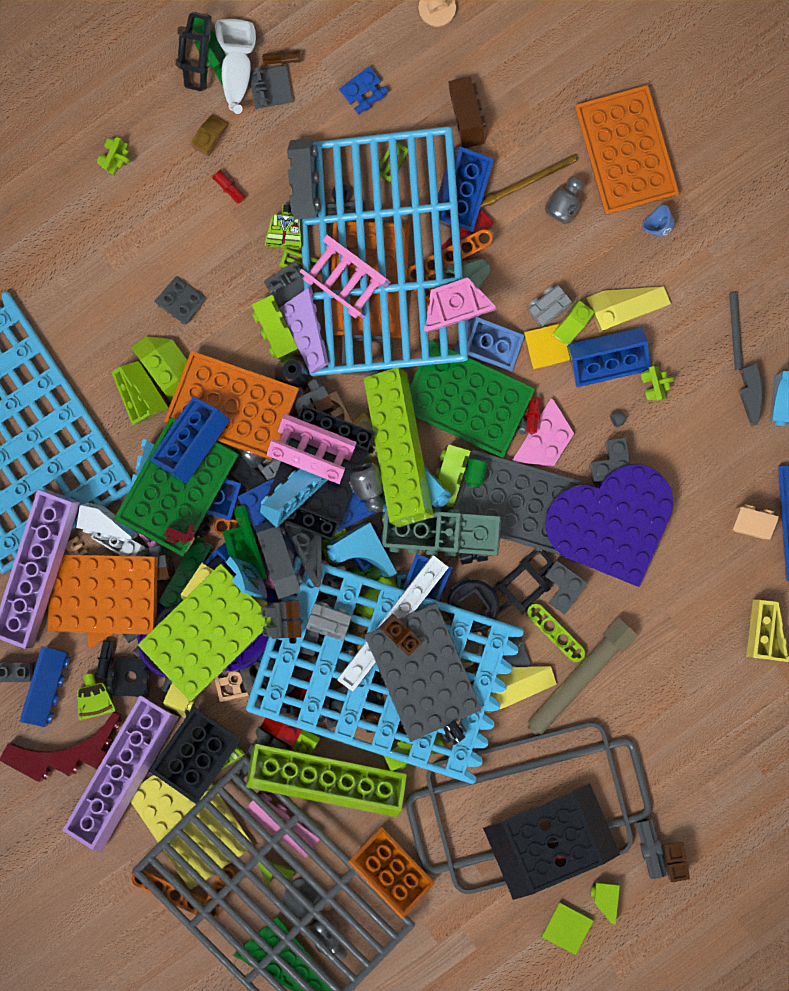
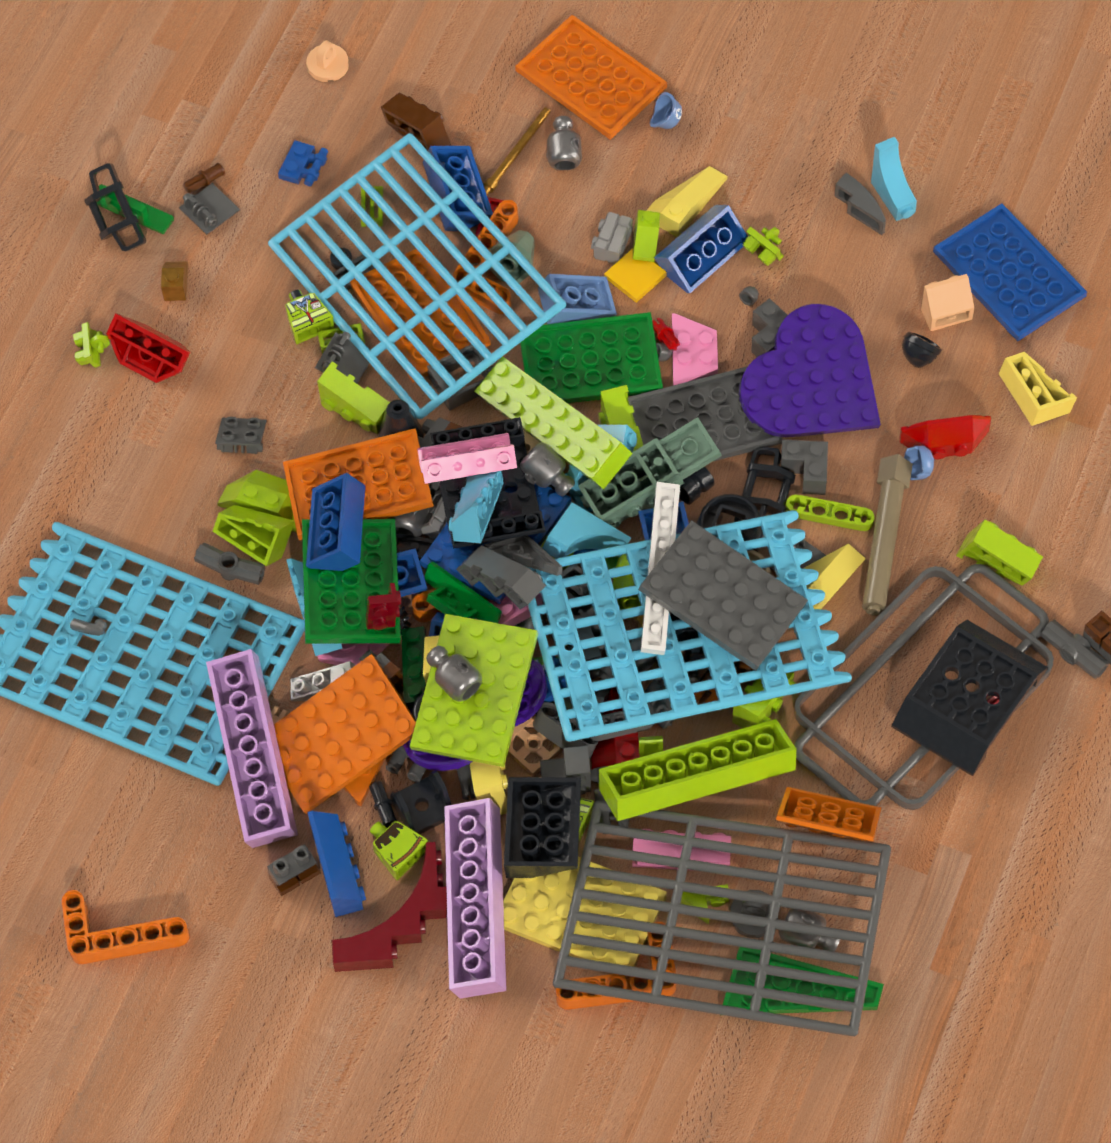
camera: 30 degrees left, 25 degrees down
(99, 519) = (290, 665): white slope -> none
(102, 395) = (241, 569): none -> dark grey piece
(153, 187) = (146, 349): none -> red wedge
(194, 621) = (454, 674): none -> flat silver piece
(228, 186) = (224, 311): red axle -> none
(237, 40) = (151, 187): white piece -> none
(240, 720) = (574, 765): none -> dark grey brick
(247, 578) = (477, 613): medium azure slope -> none
(279, 628) = (547, 622): dark grey hips -> none
(303, 178) = (295, 255): dark grey brick -> none
(303, 324) = (387, 379): lavender wing -> none
(329, 621) = (594, 600): light grey brick -> none
(361, 270) = (386, 291): bright pink fence -> none
(400, 634) = (679, 564): reddish brown slope -> none
(454, 732) = (796, 634): black gear -> none
(455, 304) = (521, 260): bright pink wing -> none
(475, 473) = (645, 409): green brick -> none
(567, 928) = (1049, 776): lime tile -> none
(606, 898) = (1067, 722): lime slope -> none
(646, 637) = (922, 462): none -> medium blue hair
(650, 744) = (1000, 551): none -> lime wedge
(677, 629) = (947, 436): none -> red wedge
(709, 545) = (919, 349): none -> black hat
(735, 331) = (805, 164): dark grey bar -> none

